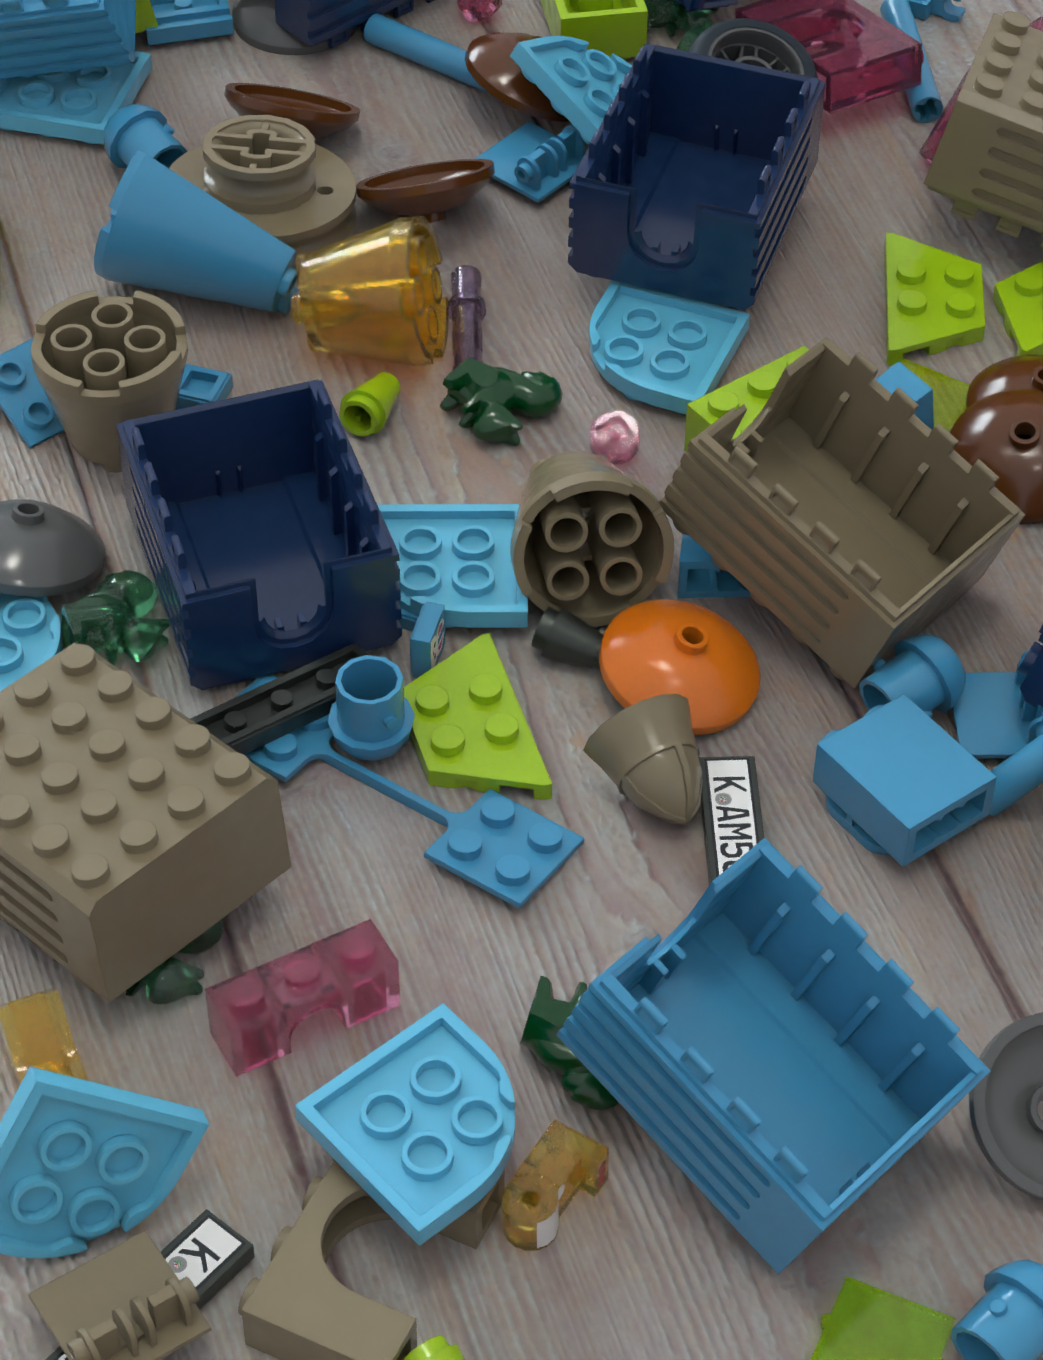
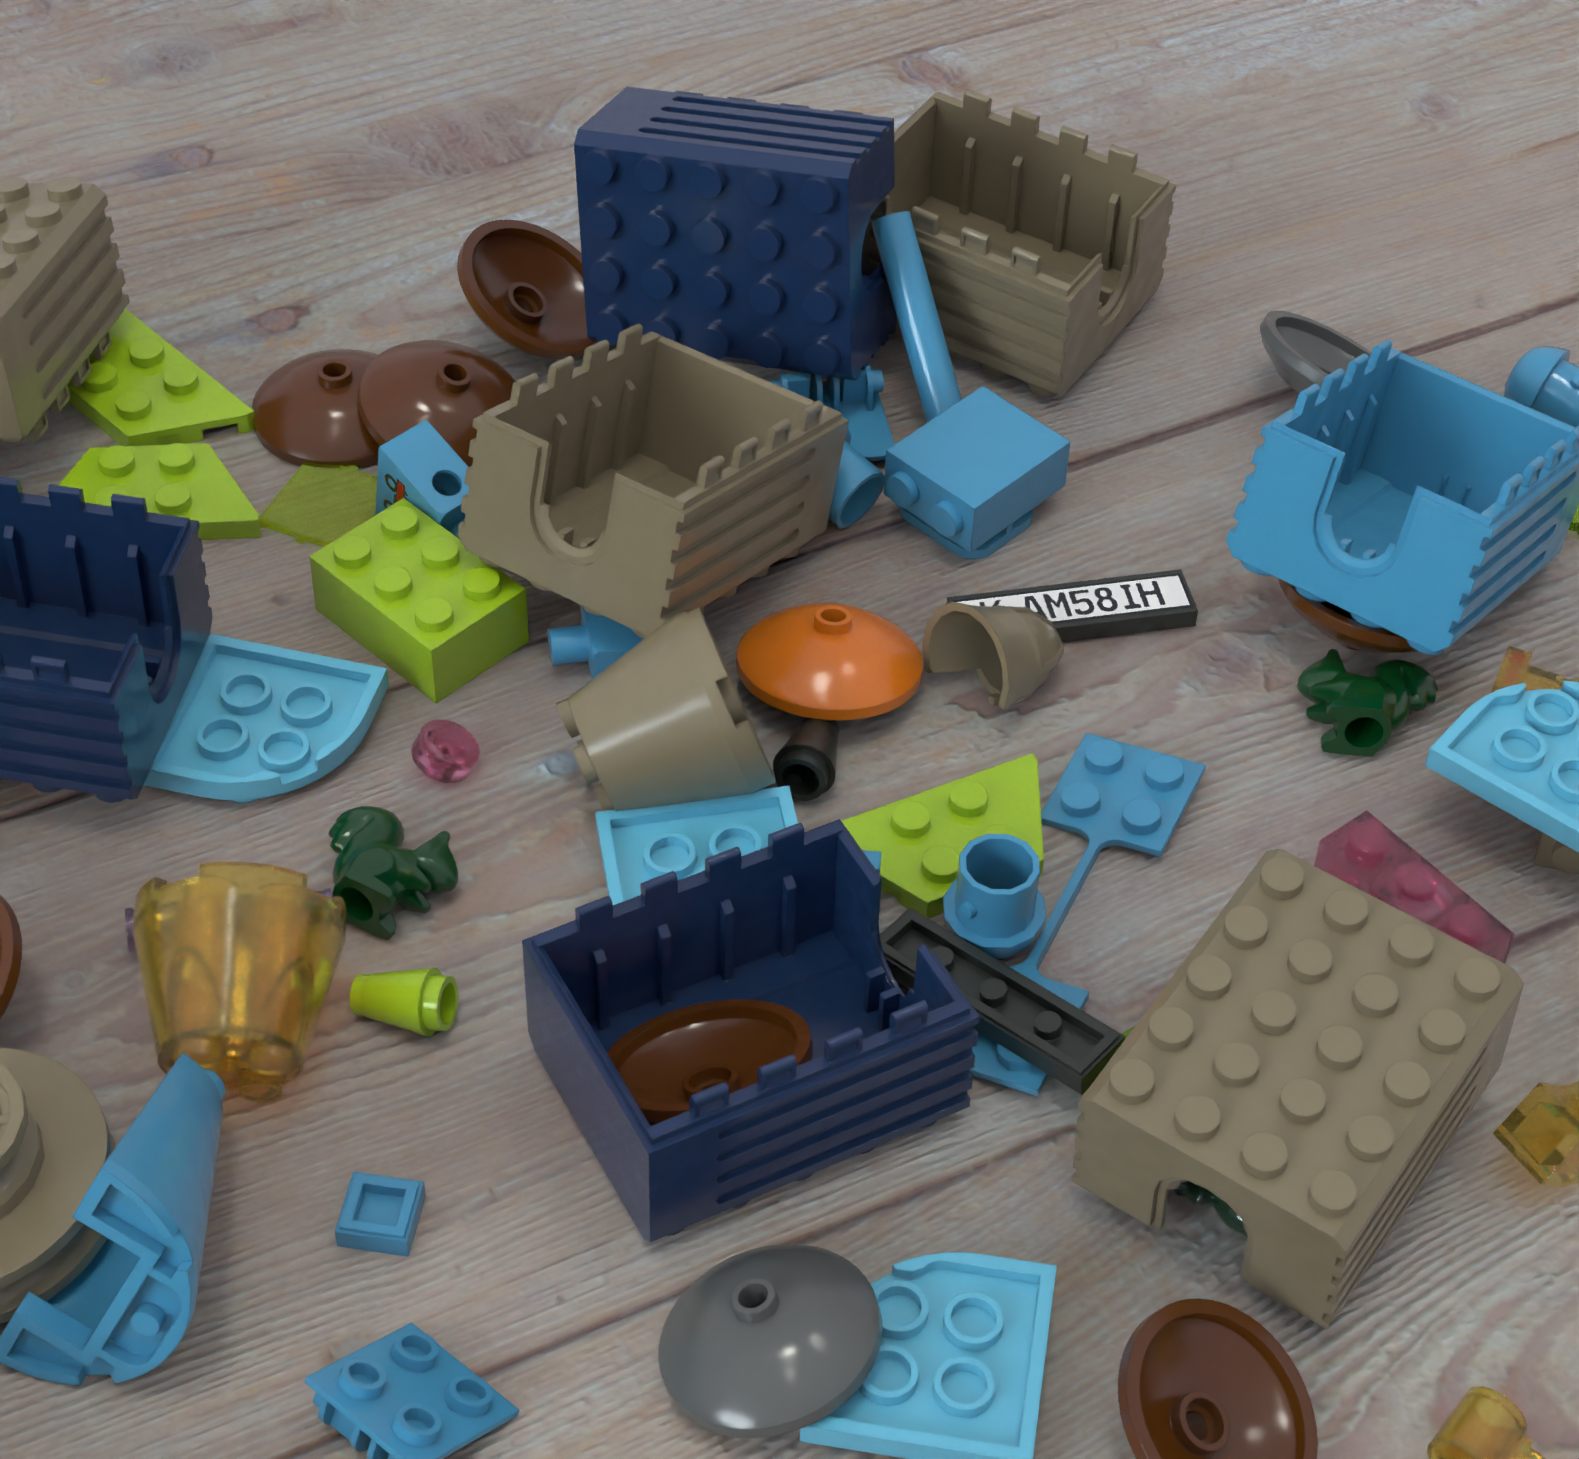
camera: 100 degrees left, 0 degrees up
(108, 365) = (474, 1223): dark tan cone -> none
(112, 618) = (877, 1223): clear green animal -> none
(237, 512) = (703, 1047): none -> reddish brown dish

